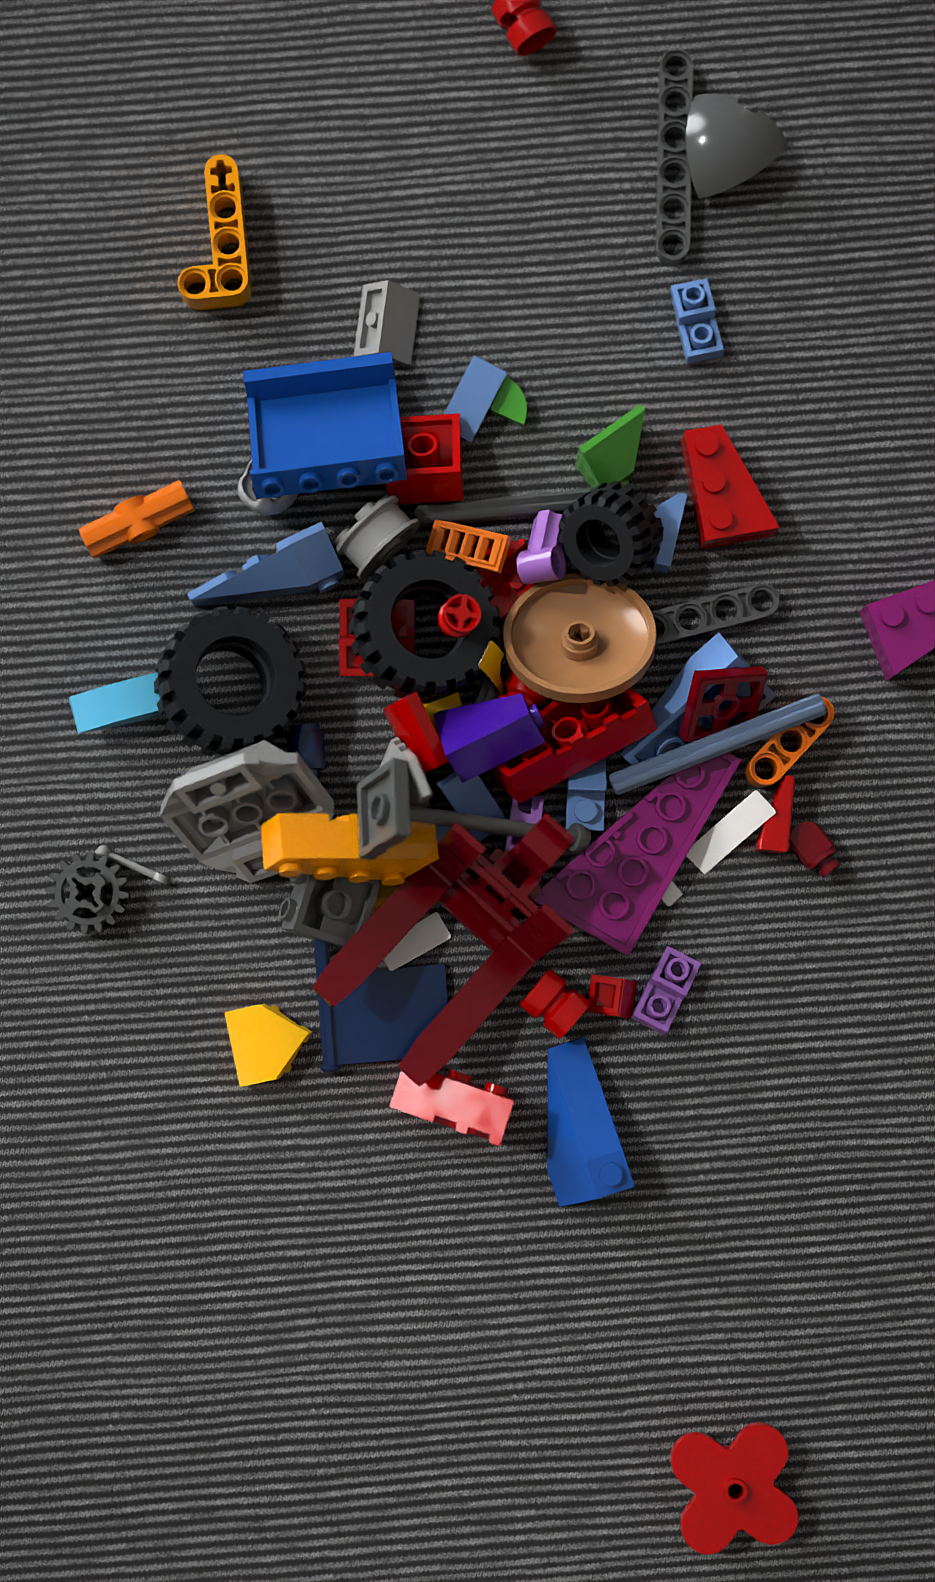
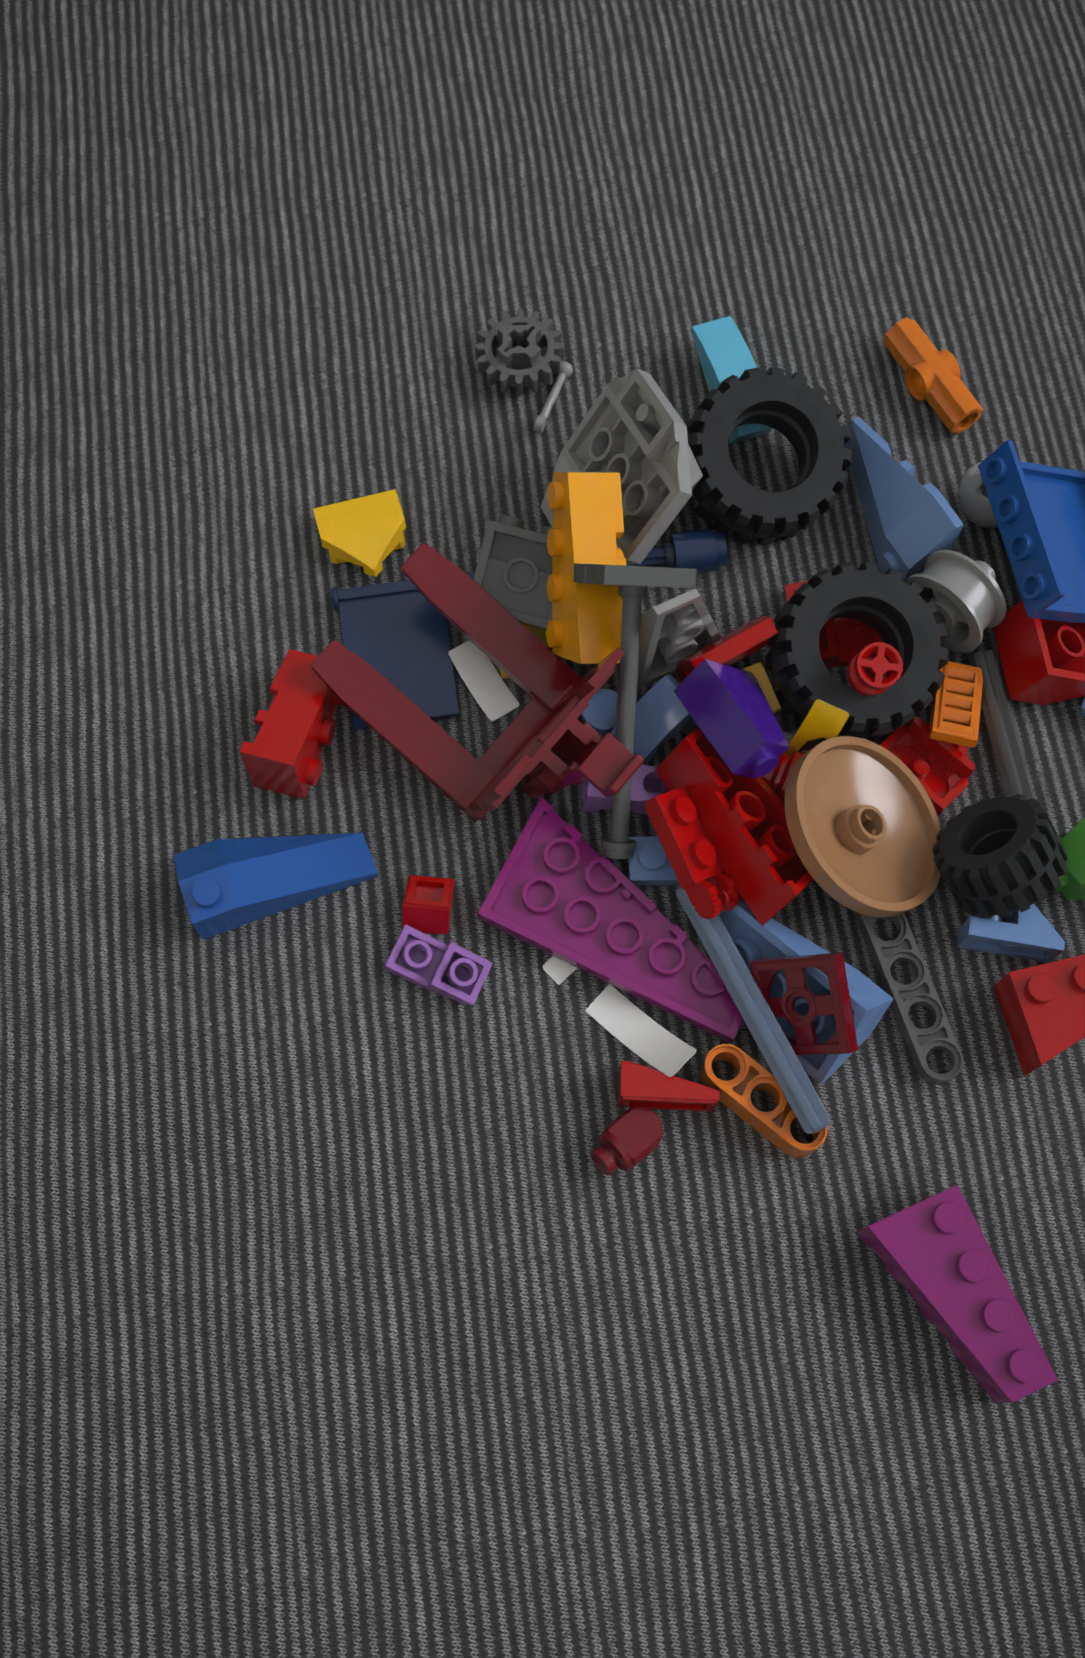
camera: 85 degrees right, 15 degrees down
(544, 557) = (958, 786): medium lavender piece -> none
(555, 1003) = (420, 825): red wheel -> none
(596, 780) = (691, 853): none -> red hinge

